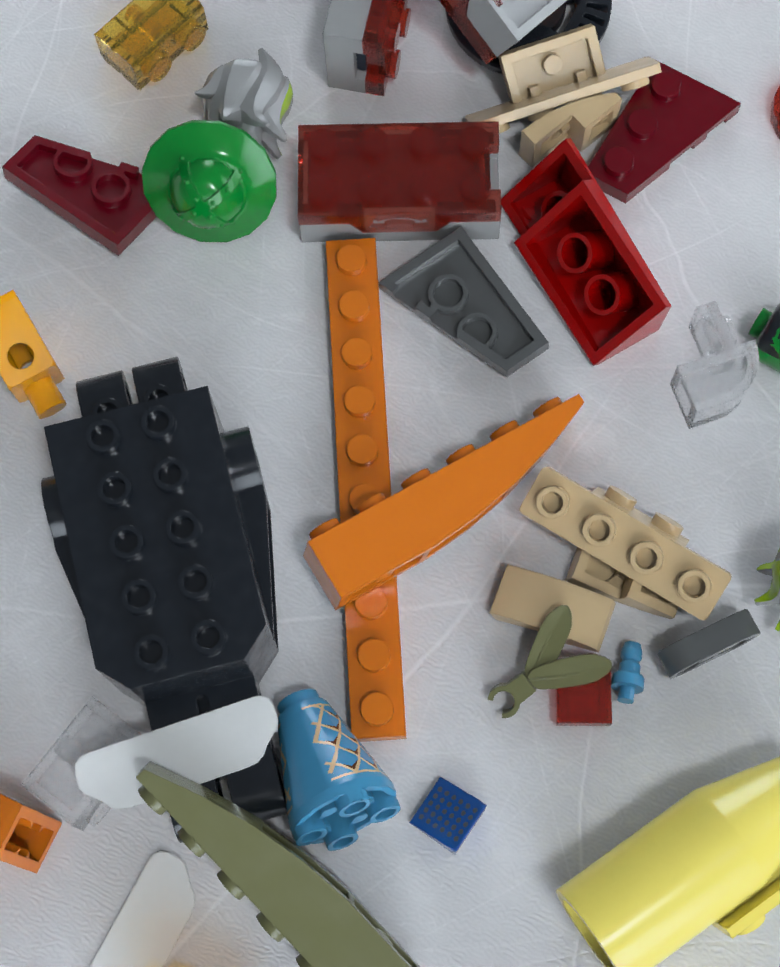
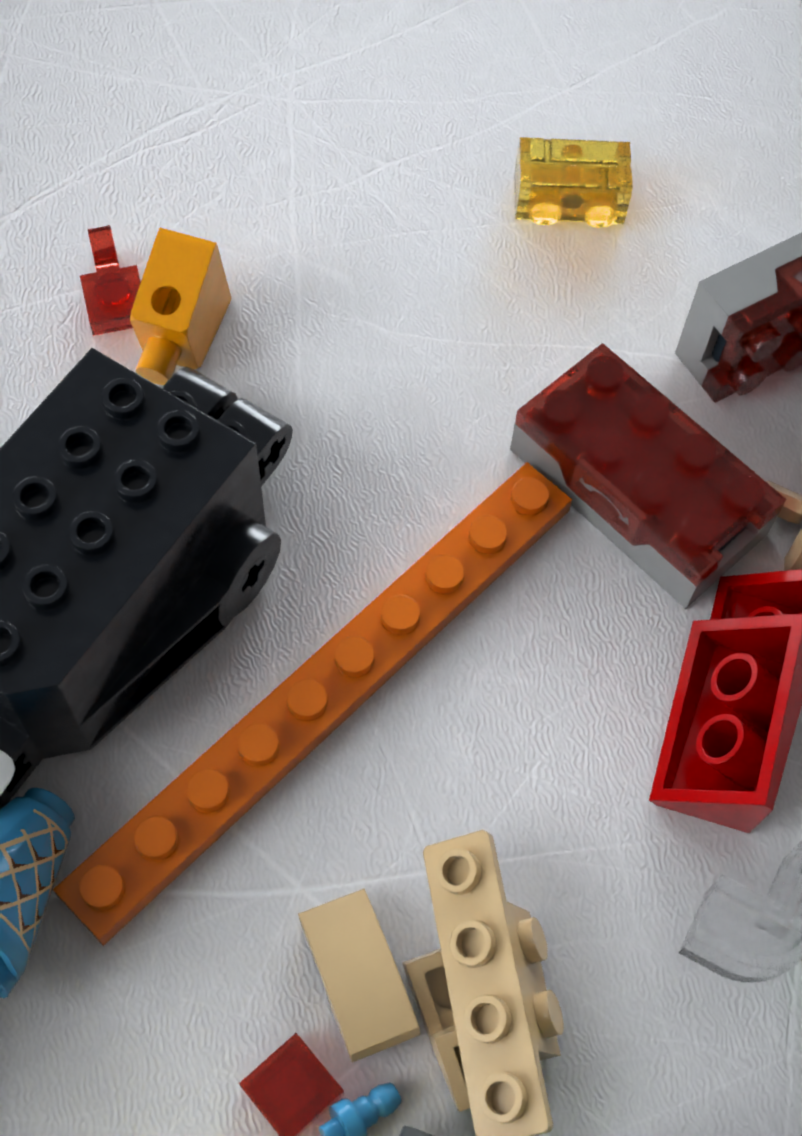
camera: 40 degrees right, 10 degrees down
(86, 192) = (381, 254): dark red wing -> none
(209, 181) = (478, 318): green helmet -> none
(250, 97) = (580, 295): light grey hair -> none
(431, 508) = (353, 766): orange slope -> none
(448, 815) = (49, 1056): blue slope -> none
(468, 302) = (592, 631): dark grey wing -> none
(543, 667) = (283, 1017): olive piece -> none

